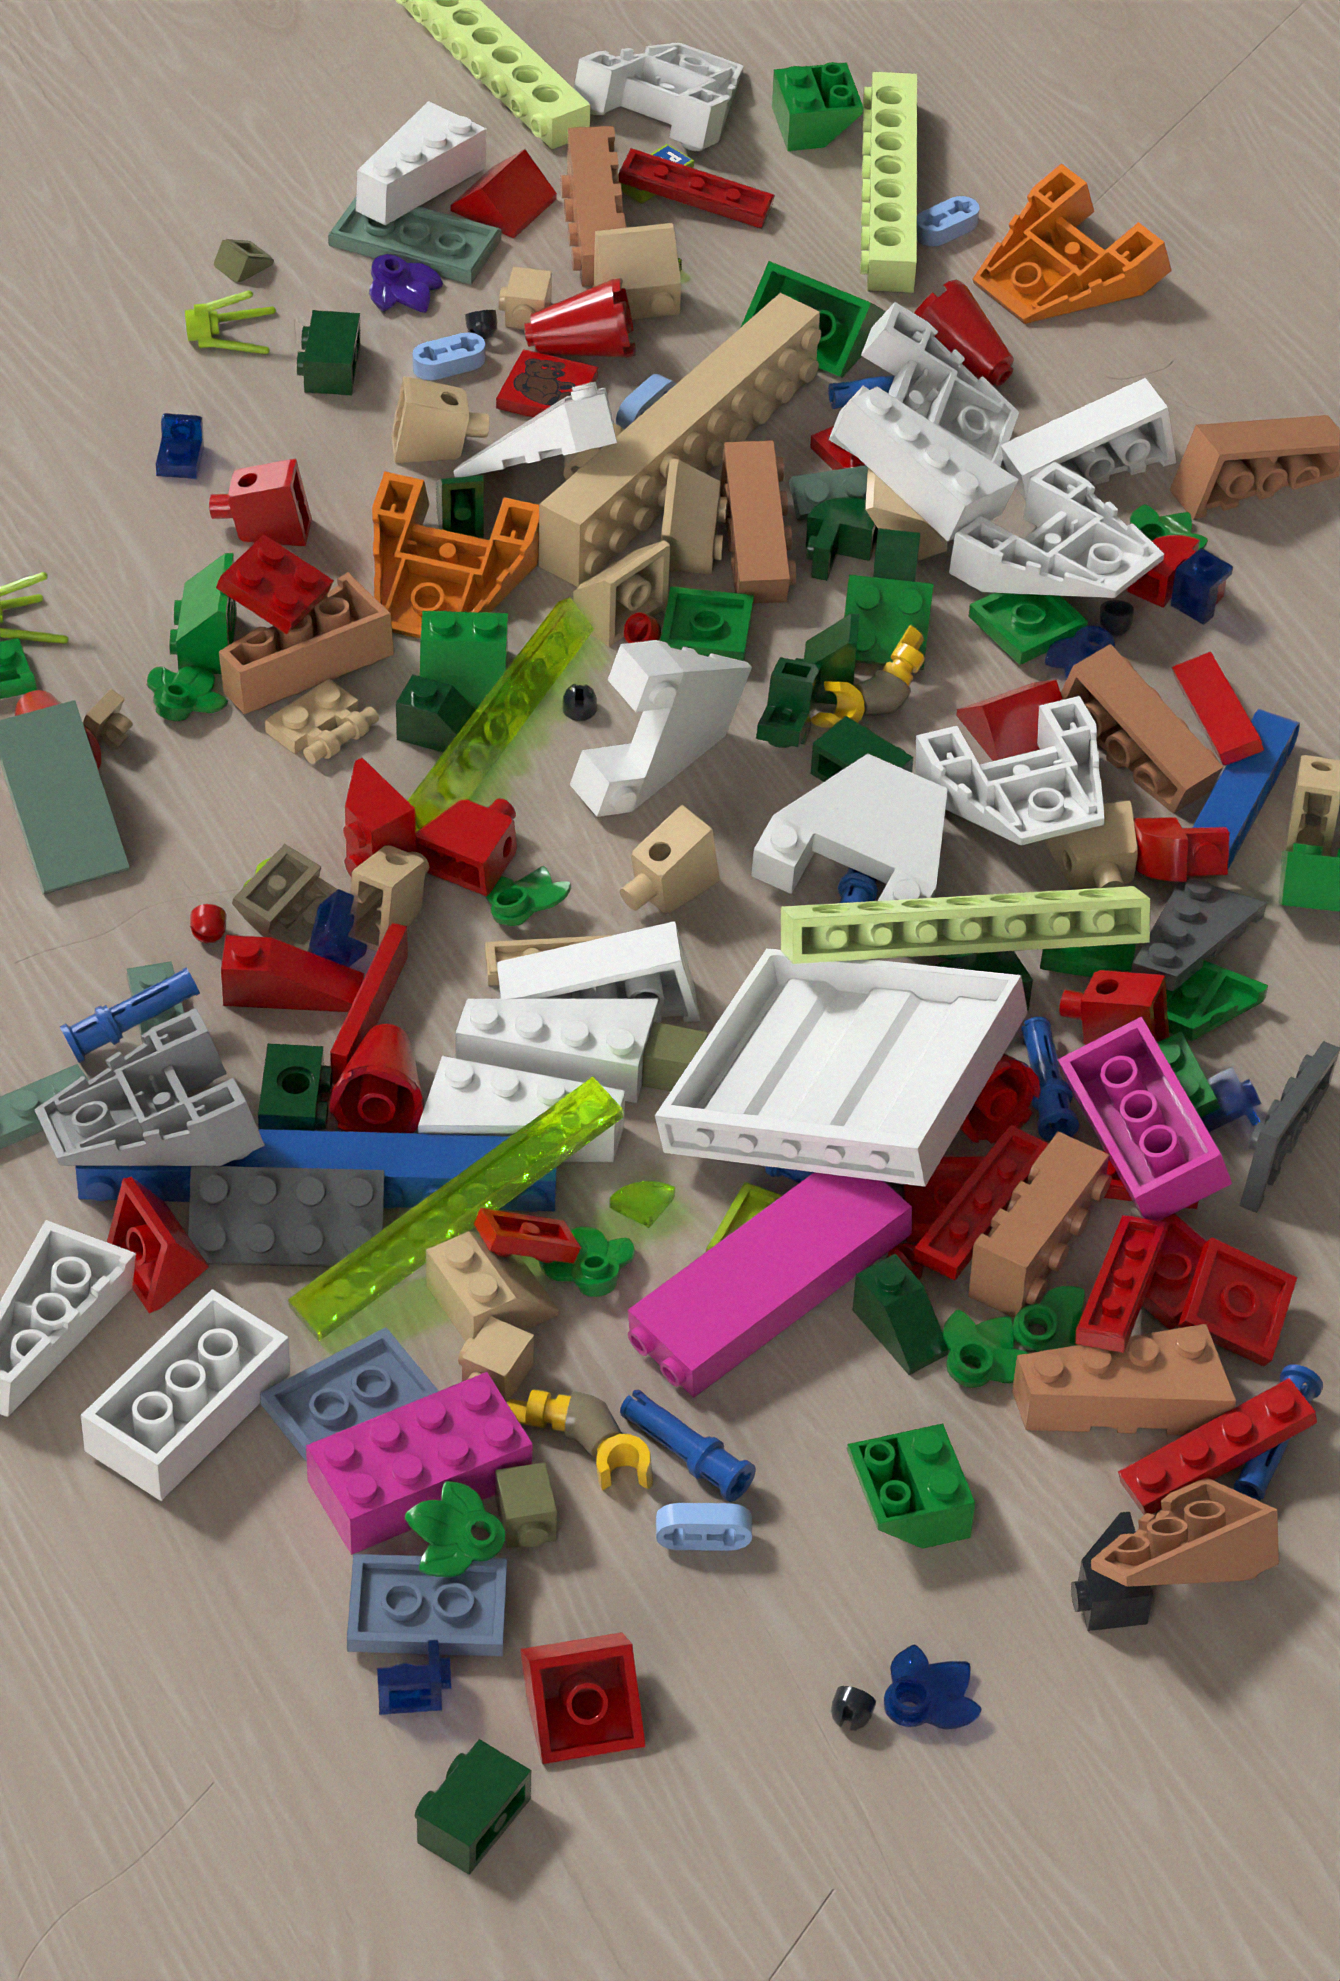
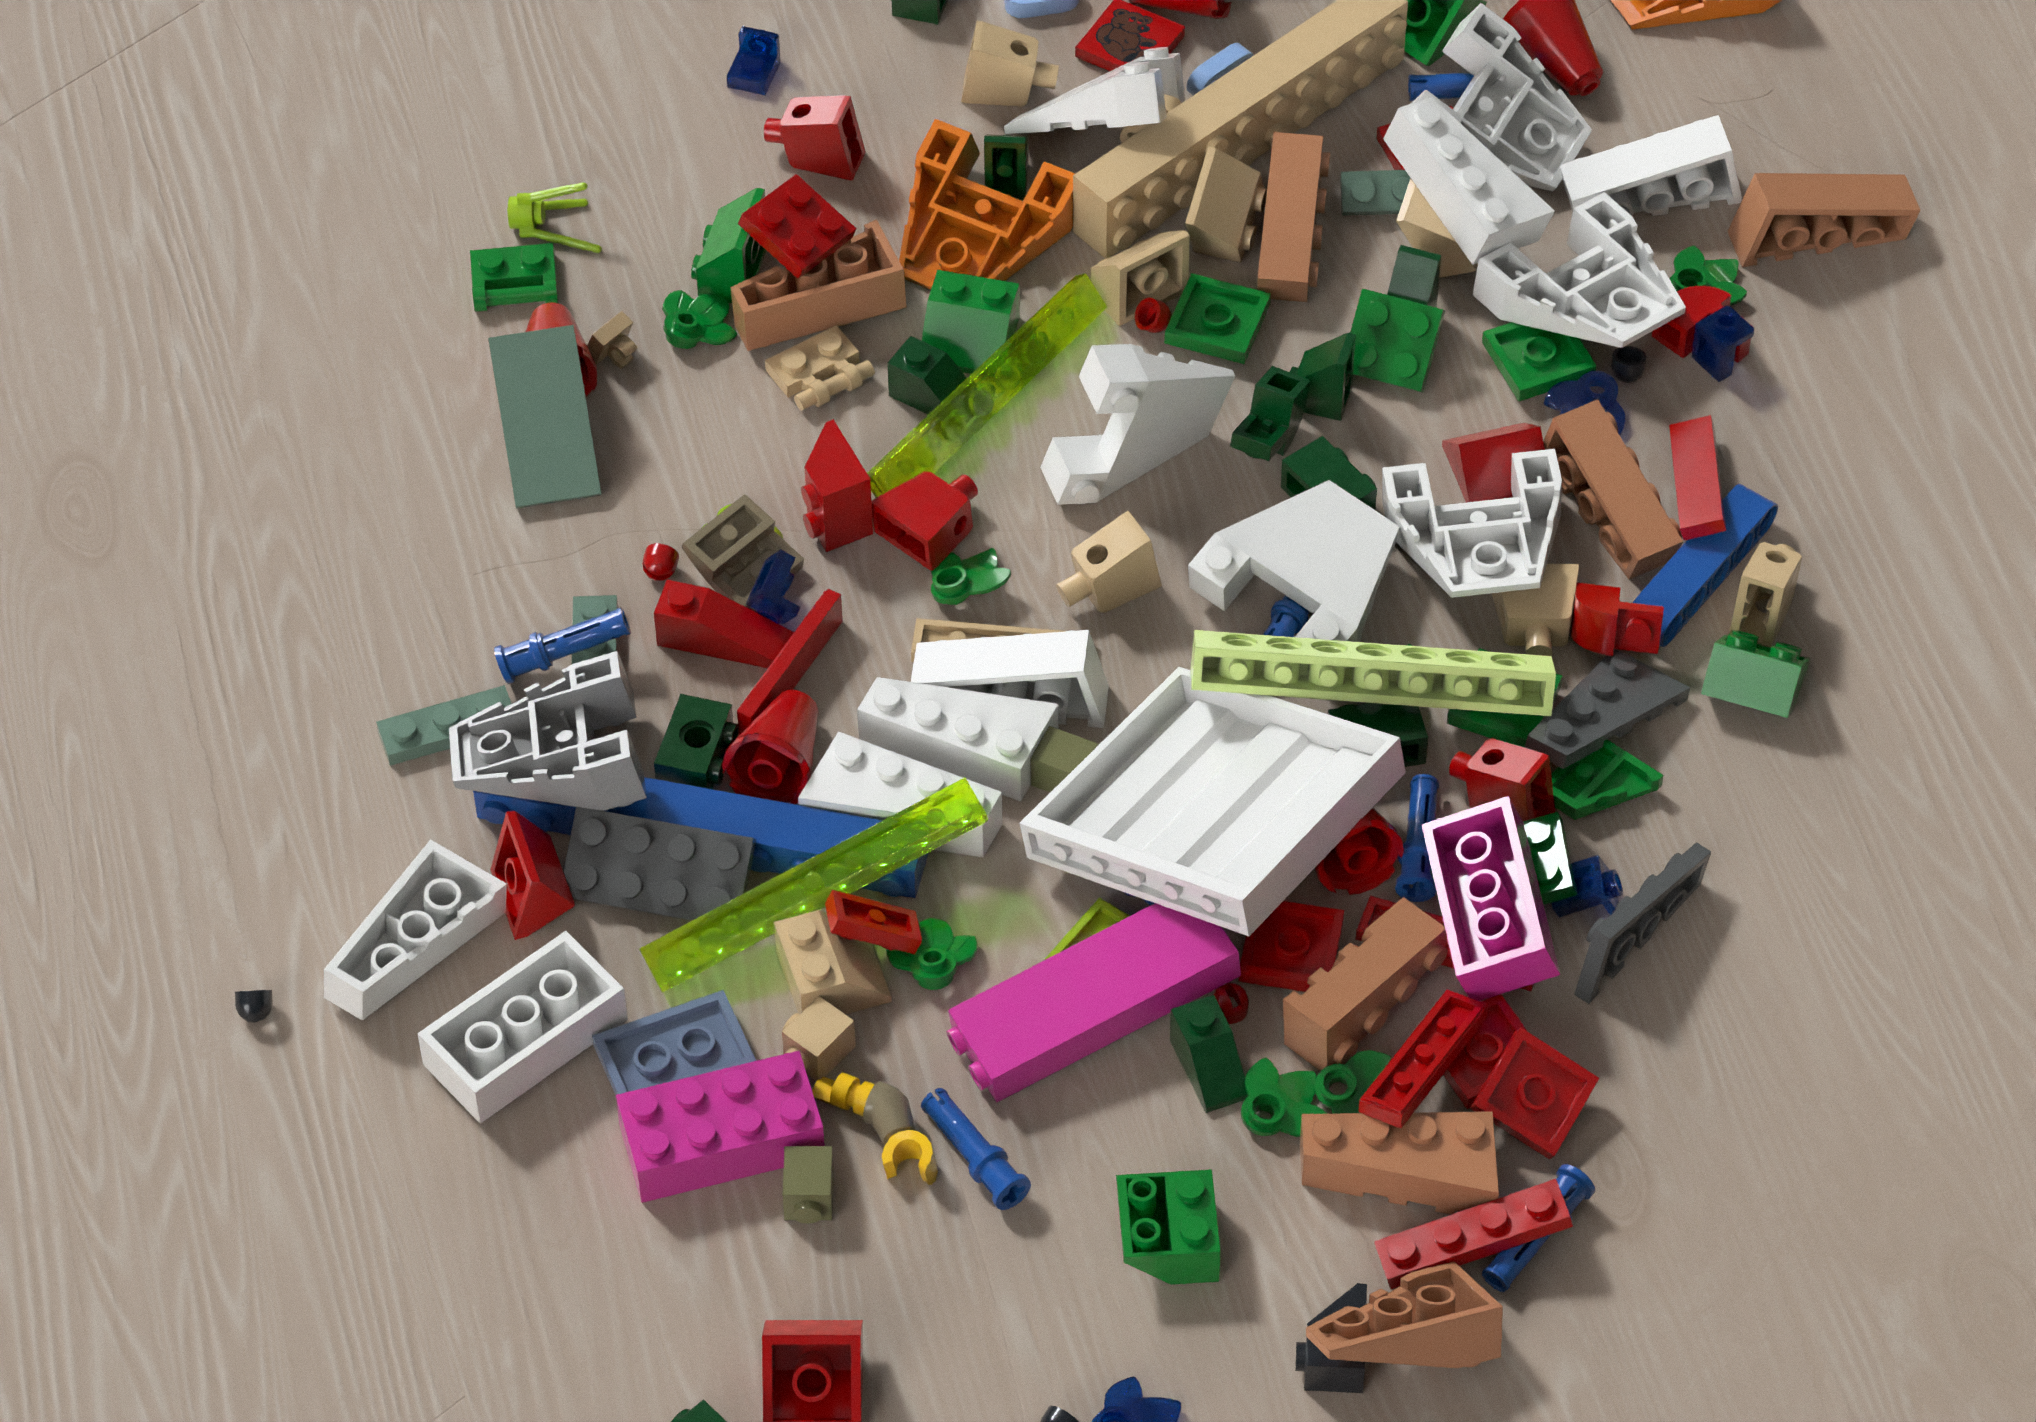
camera: 15 degrees right, 5 degrees up
(386, 892) = (831, 556): tan torso -> none
(402, 1608) = (694, 1263): sand blue plate -> none
(414, 1688) = (663, 1340): clear blue bracket -> none
(448, 1530) = (726, 1196): green plate -> none
(579, 711) = (1067, 391): black hinge -> none
(642, 1201) = (999, 901): clear neon green tile -> none
(704, 1526) = (968, 1230): light blue beam -> none
(838, 528) = (1368, 234): dark green brick -> none
(883, 691) = (1368, 414): yellow piece -> none
(951, 1238) = (1314, 948): red plate -> none

